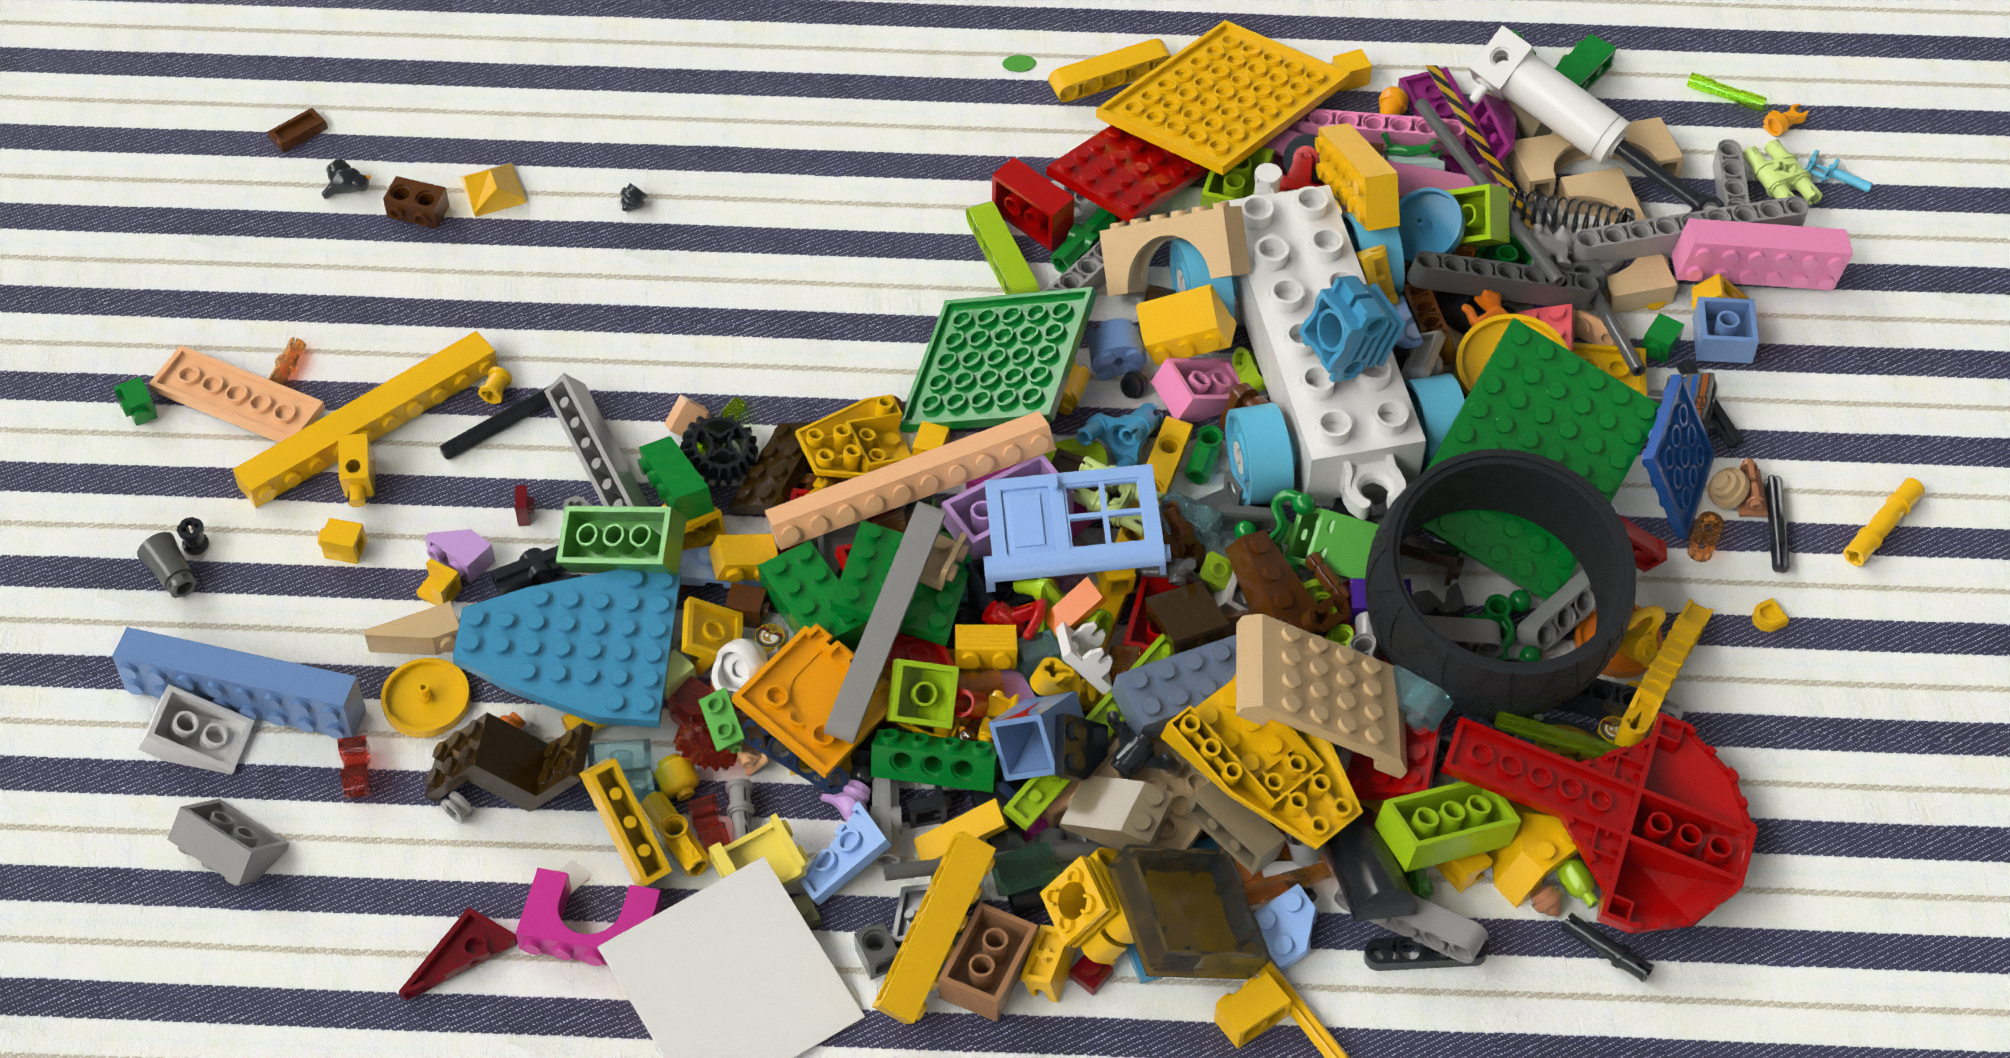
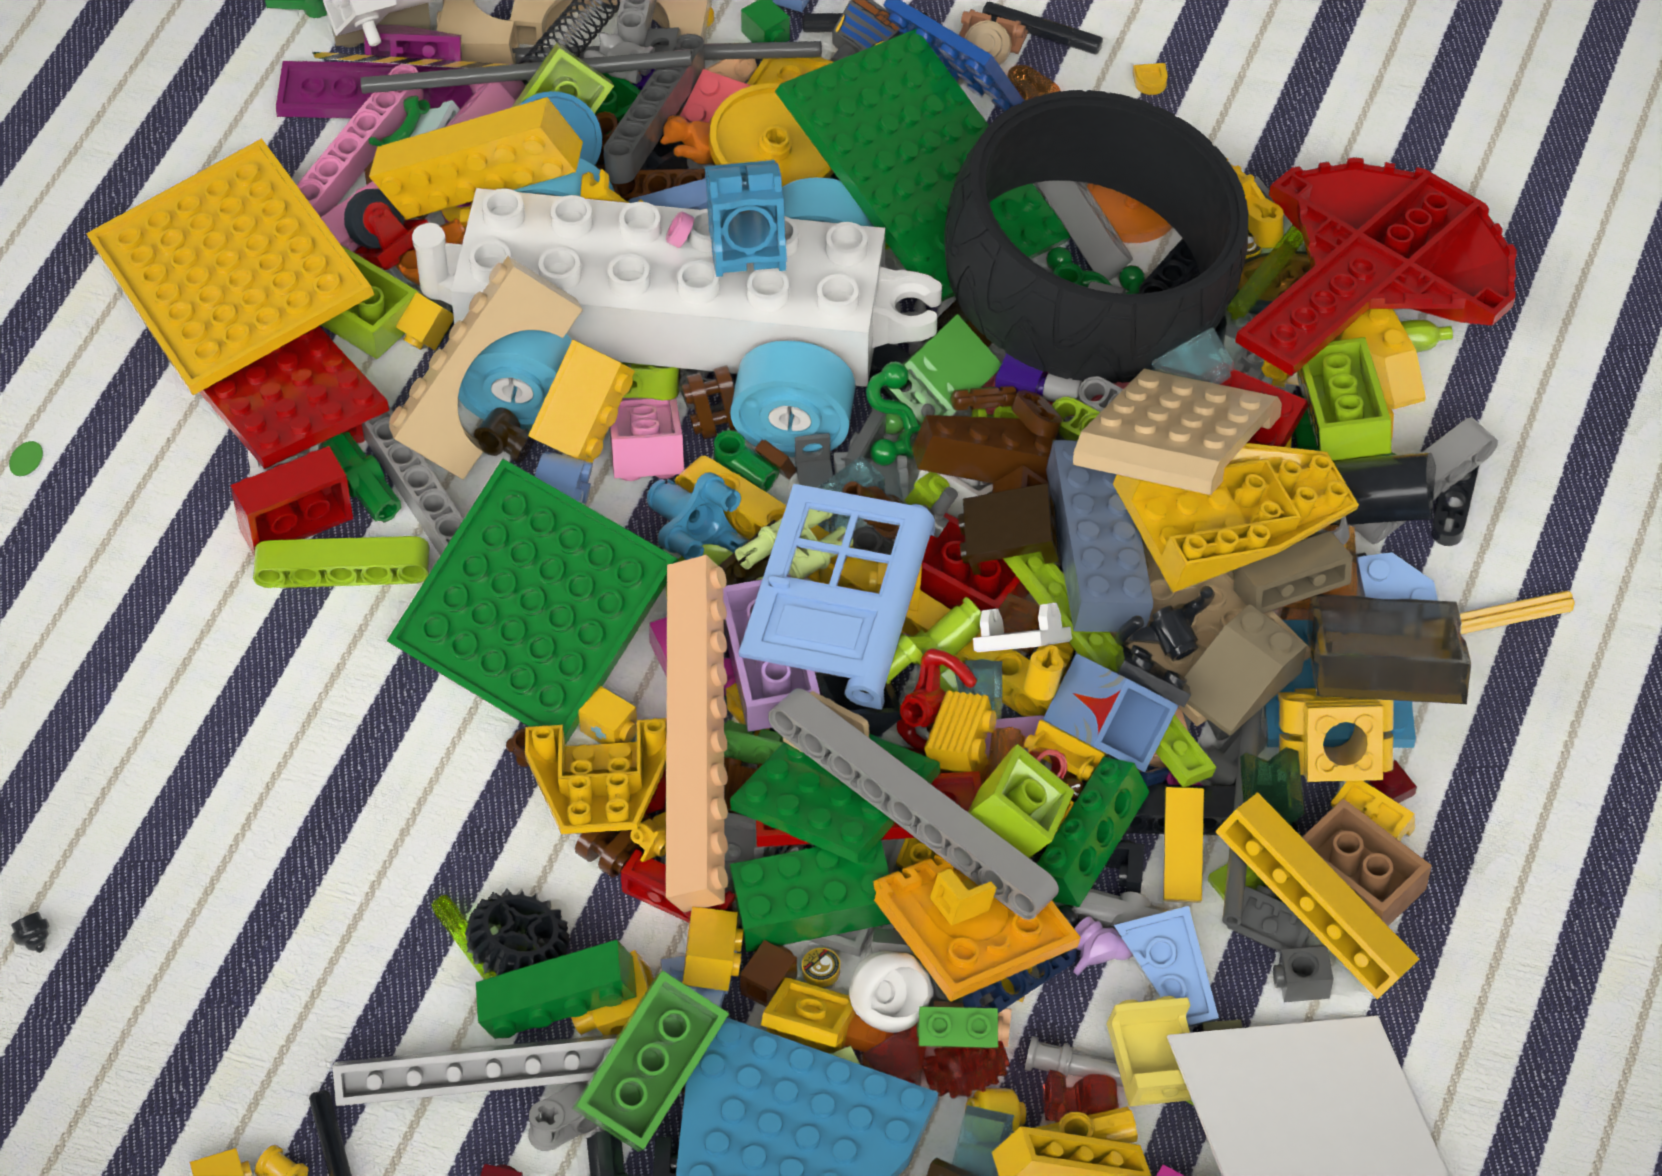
camera: 70 degrees left, 0 degrees up
(683, 413) = (443, 964): light nougat panel -> none
(773, 473) = (577, 879): dark brown plate -> none
(818, 679) = (960, 899): none -> yellow panel
(1075, 606) = (954, 622): tile -> none
(1107, 70) = (102, 367): yellow beam -> none
(1134, 384) = (607, 496): black plate -> none
(1216, 472) = (776, 458): none -> reddish brown tile
(1251, 1009) = (1492, 654): yellow brick -> none
(1357, 65) = (233, 137): yellow brick -> none
(1393, 101) = (308, 127): light orange piece -> none
(1547, 900) = (1432, 367): nougat plate -> none
(1607, 947) = (1511, 336): black pin -> none

